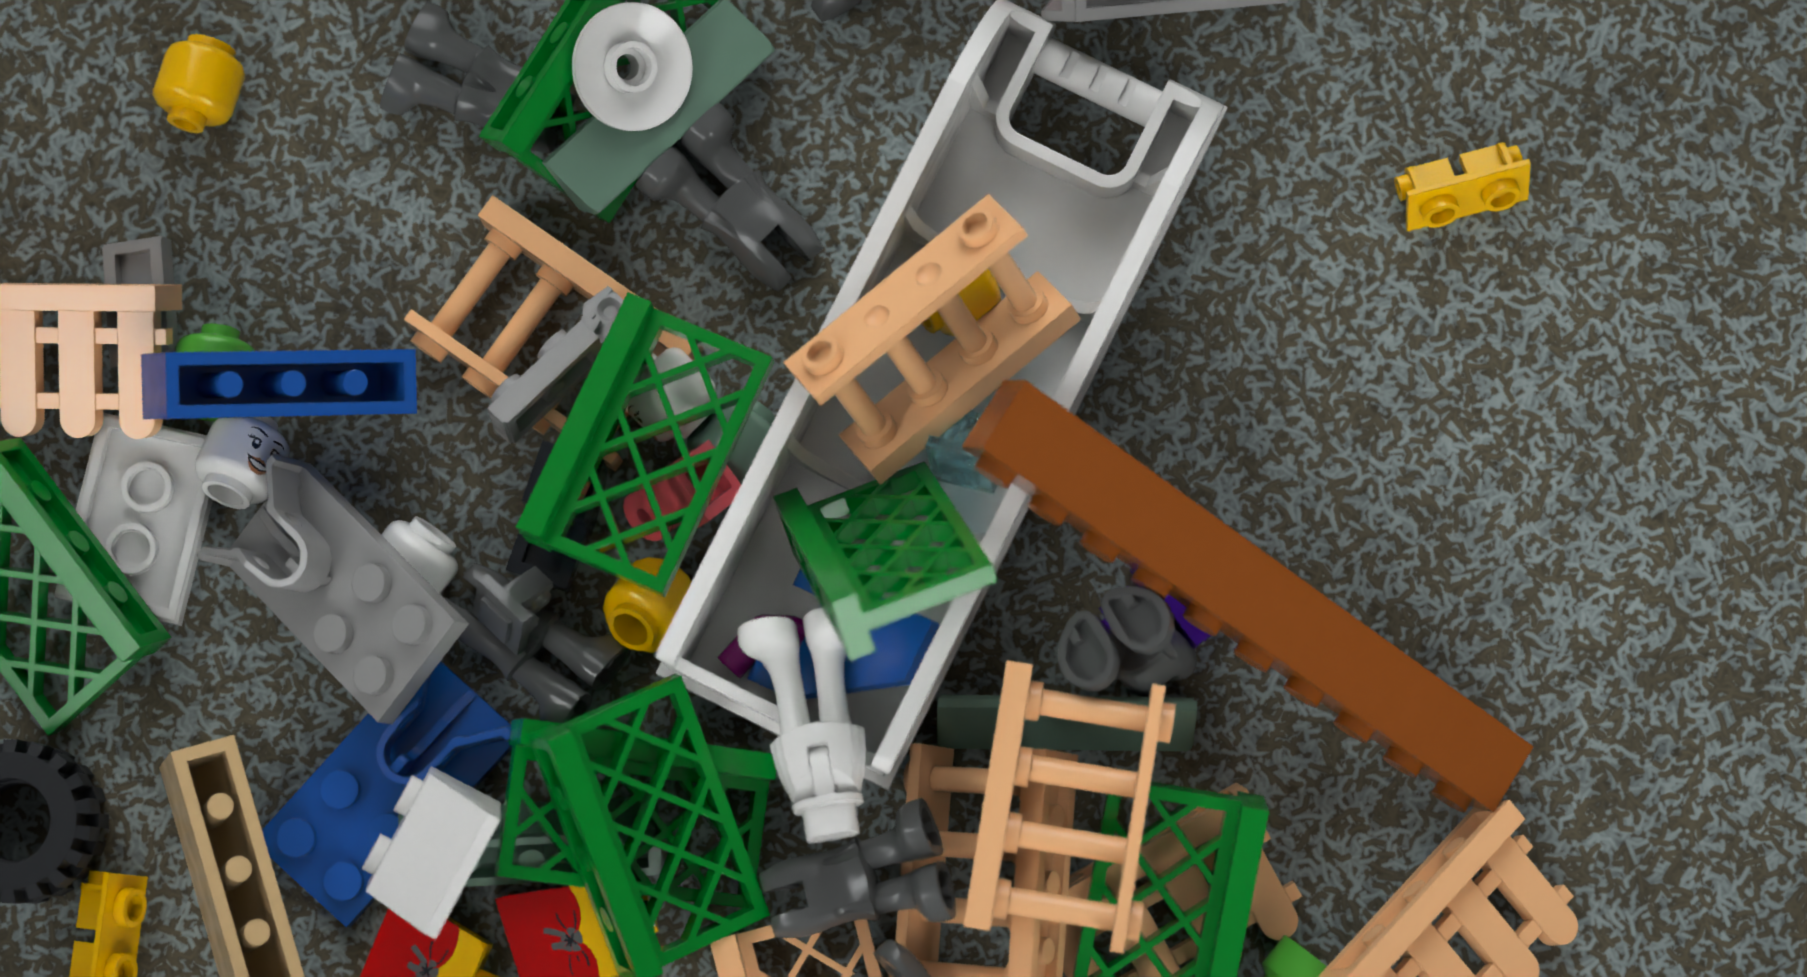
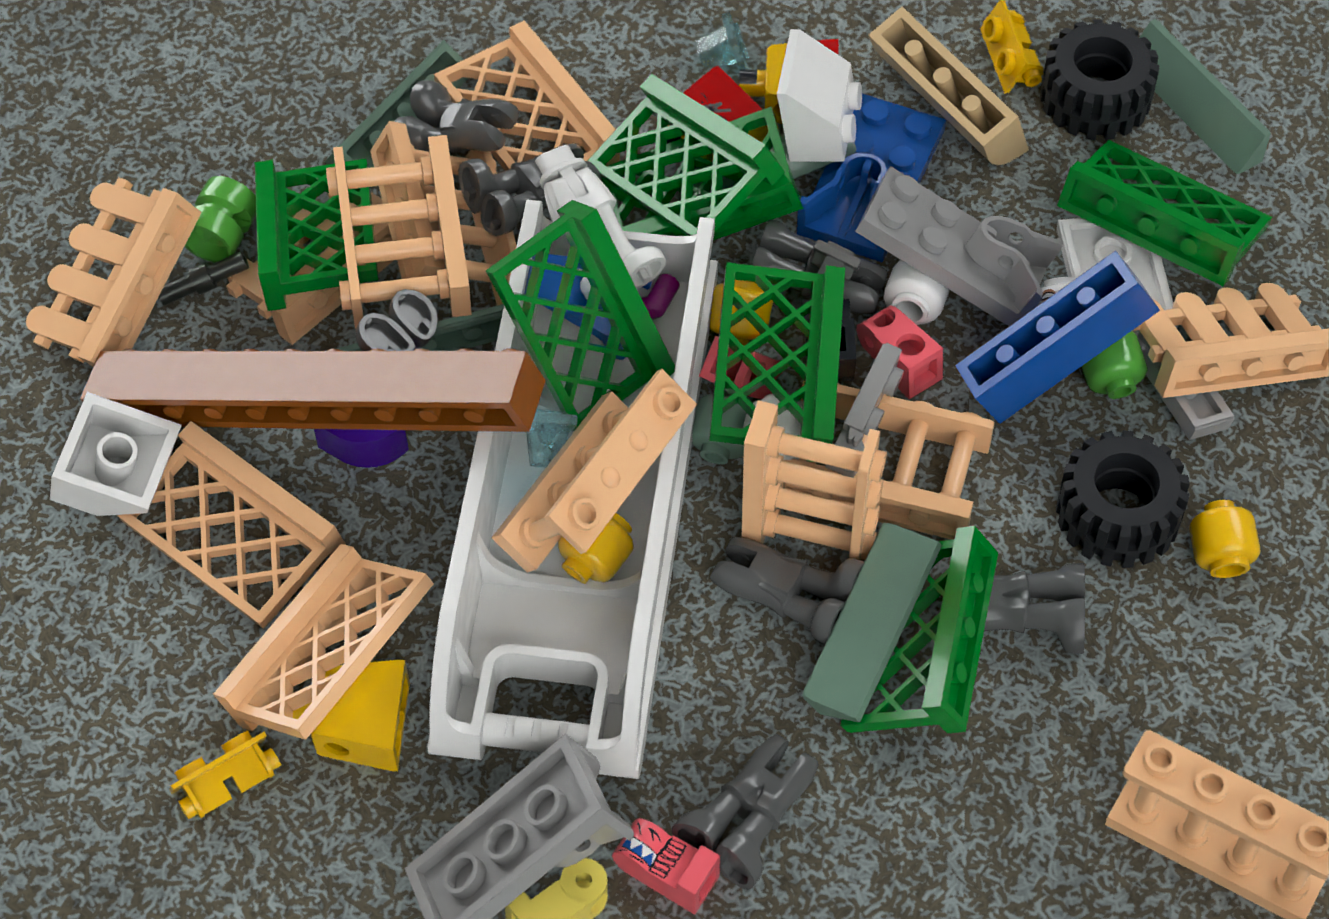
camera: 160 degrees right, 25 degrees down
(258, 136) = (1117, 531): none -> black tyre
(467, 490) = (920, 354): none -> coral leg
(658, 63) = (888, 611): white dish -> none
(723, 270) = (764, 493): none -> light nougat fence
(1294, 203) = (367, 719): none -> yellow torso
(1325, 330) = (296, 643): none -> light nougat fence
(1326, 915) = (203, 278): none -> pearl dark grey bar
(1328, 533) = (265, 501): none -> light nougat fence
(1507, 643) = (112, 458): none -> white slope

